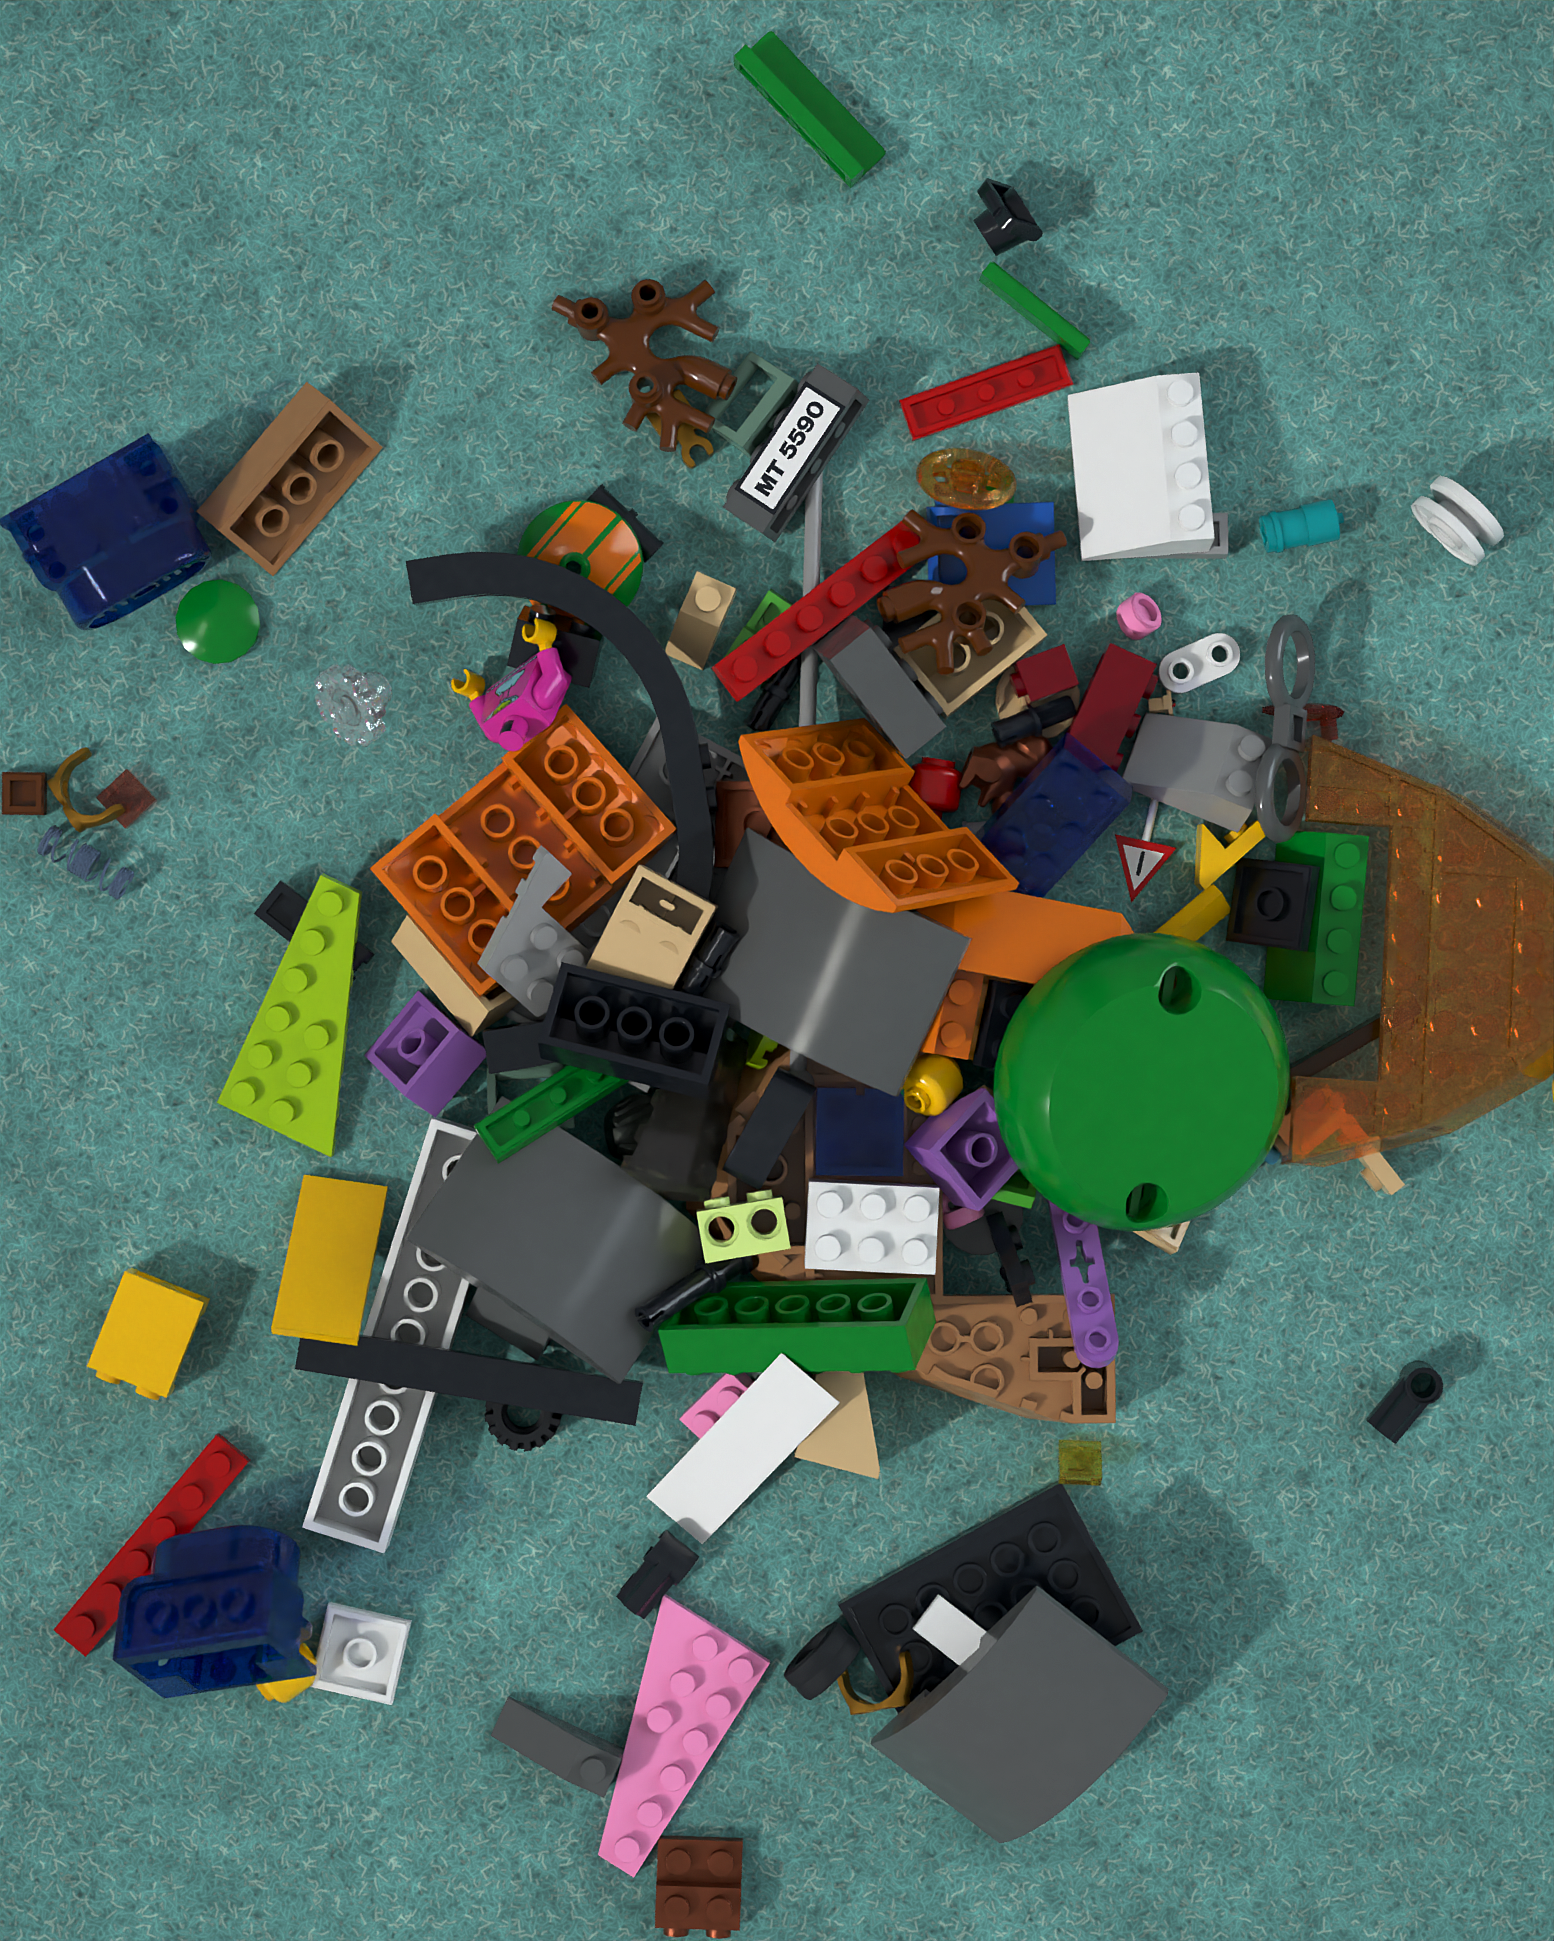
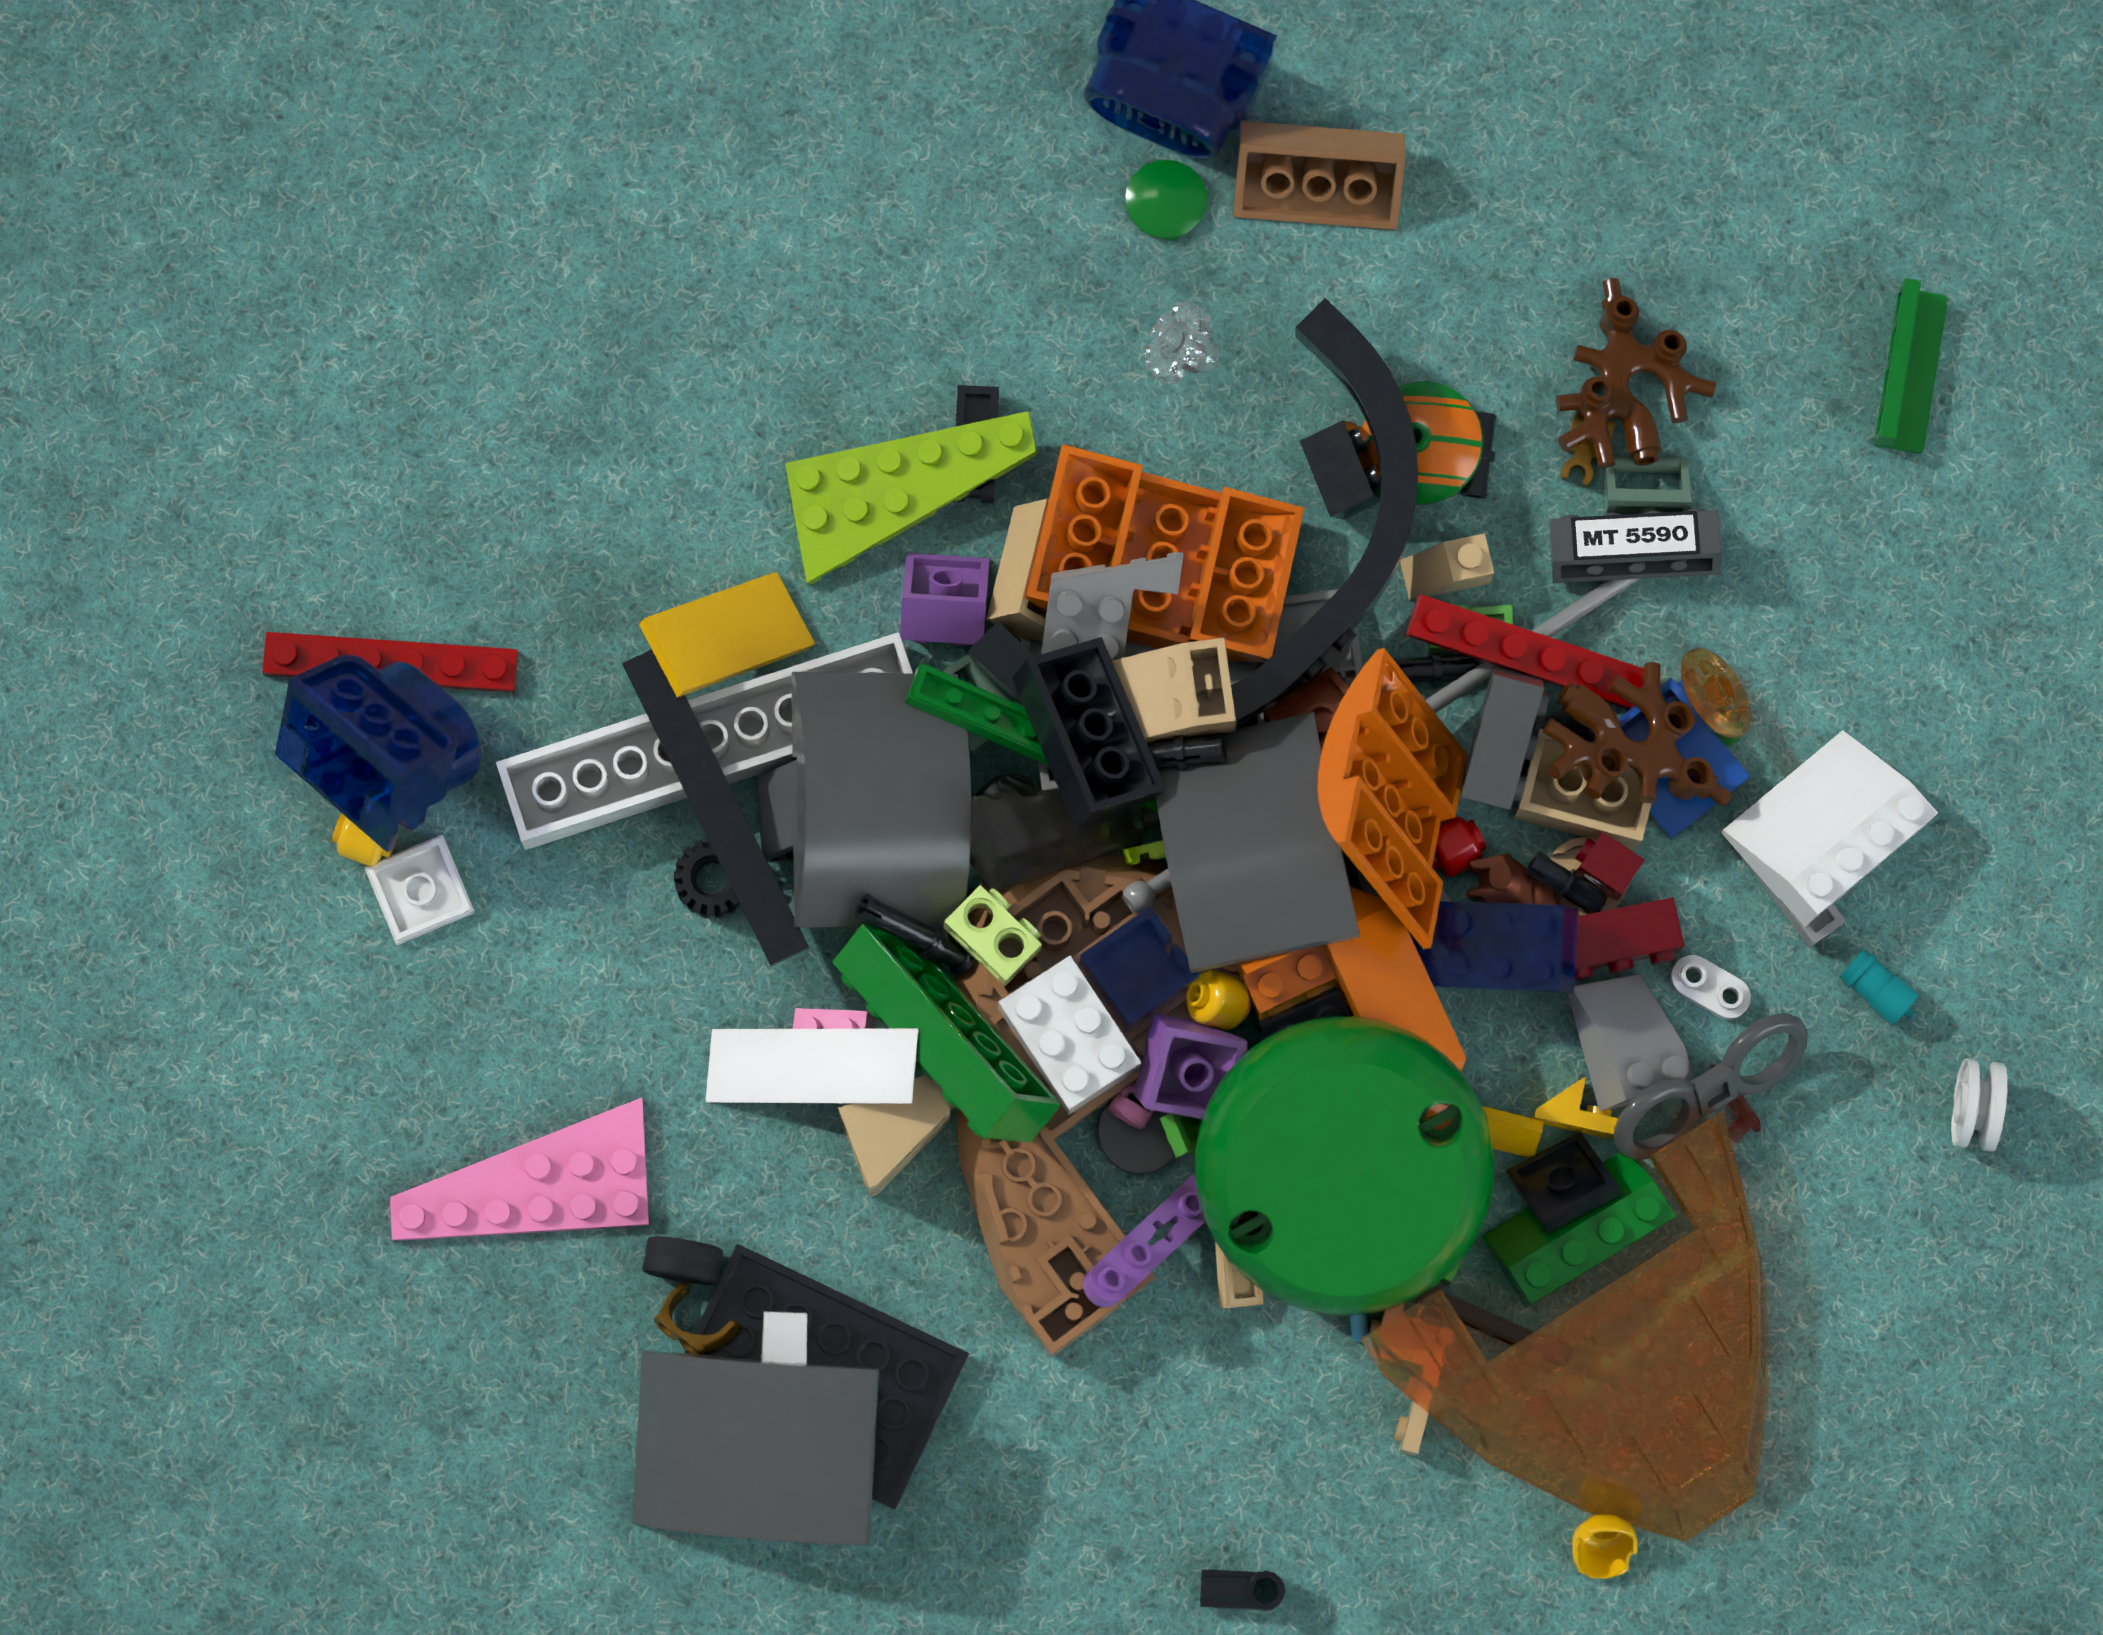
camera: 45 degrees right, 10 degrees down
(24, 793) = (920, 146): reddish brown tile -> none
(59, 787) = (945, 169): pearl gold cap -> none
(82, 862) = (901, 225): sand blue piece -> none
(131, 794) = (974, 227): clear red tile -> none
(147, 1333) = (559, 536): yellow panel -> none
(525, 698) = (1287, 471): dark pink torso -> none
(558, 1746) = (458, 1100): dark grey slope -> none
(662, 1567) = (661, 1080): black piece -> none
(698, 1885) = (423, 1297): copper plate -> none
(769, 1128) = (1088, 896): black beam -> none
(986, 392) = (1795, 664): red tile -> none
(1006, 218) = (1942, 579): black piece -> none
(1015, 1273) = (1116, 1182): black plate -> none
(1034, 310) = (1888, 654): green tile -> none
(1079, 1462) = (995, 1358): clear yellow tile -> none
(1138, 616) = (1711, 911): bright pink tile -> none
(1141, 857) = (1522, 1056): piece -> none
(1162, 704) = (1656, 982): tan piece -> none

